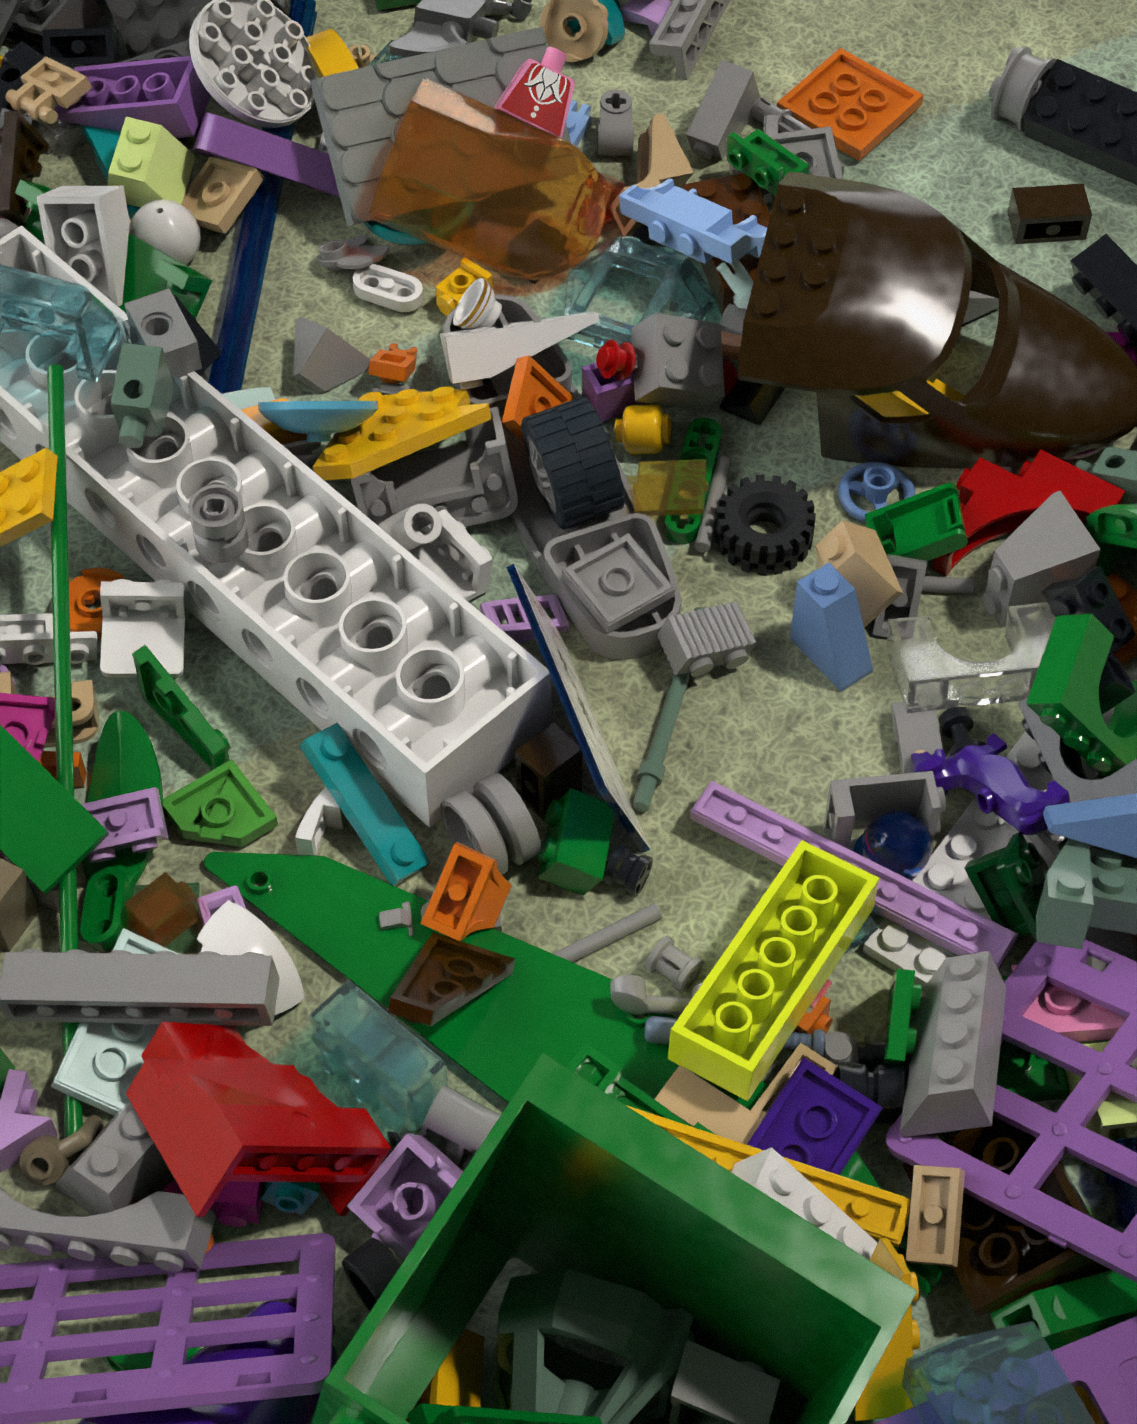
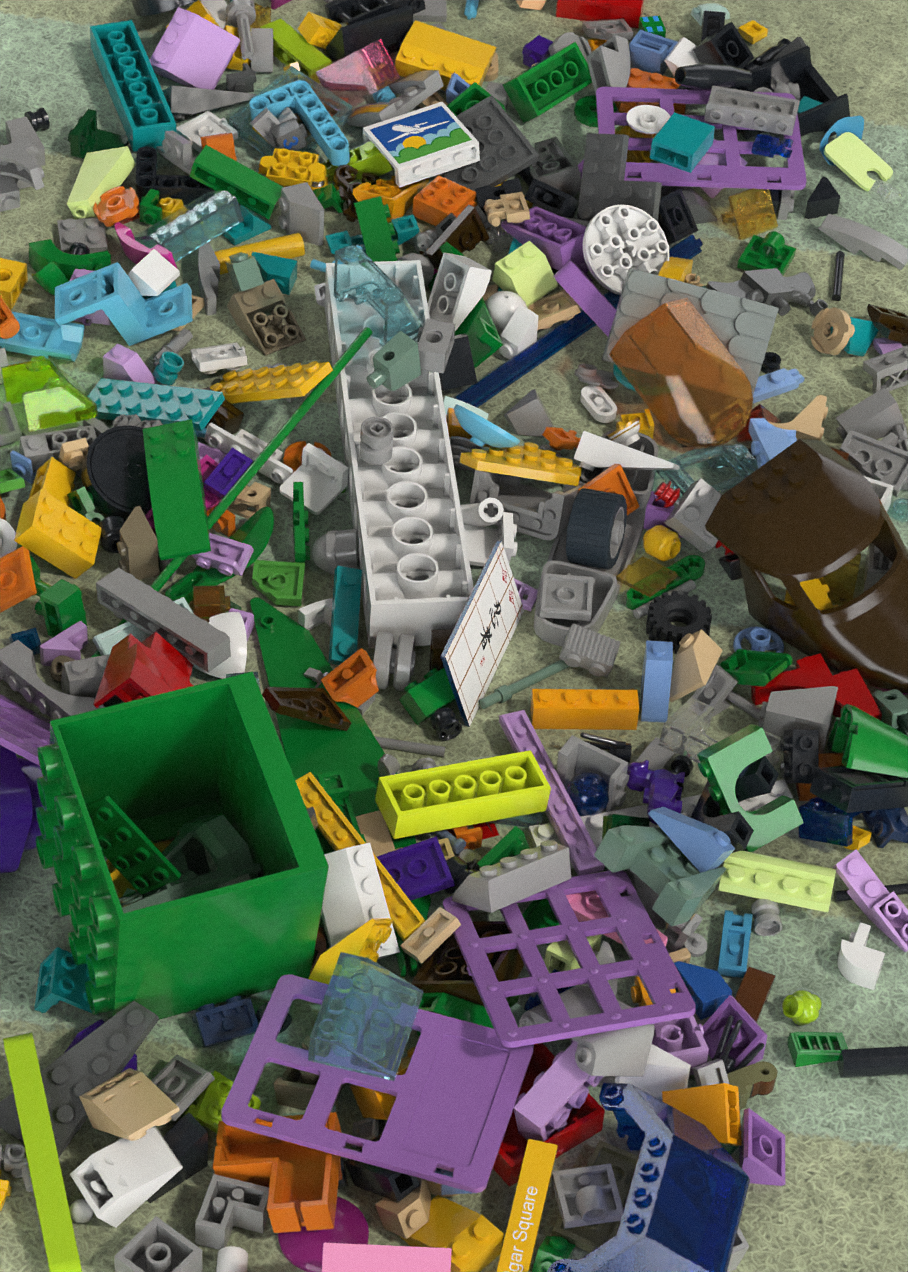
camera: 35 degrees right, 10 degrees down
(32, 700) = (227, 473): none -> dark purple plate
(213, 248) = (519, 332): none -> white slope
(267, 714) = (336, 549): none -> light grey helmet
(540, 93) = (749, 343): torso -> none
(615, 124) = (803, 392): light grey piece -> none
(763, 159) = (856, 449): green bracket -> none
(787, 711) = (584, 709): none -> light orange wedge
(864, 759) = (617, 748): none -> black plant

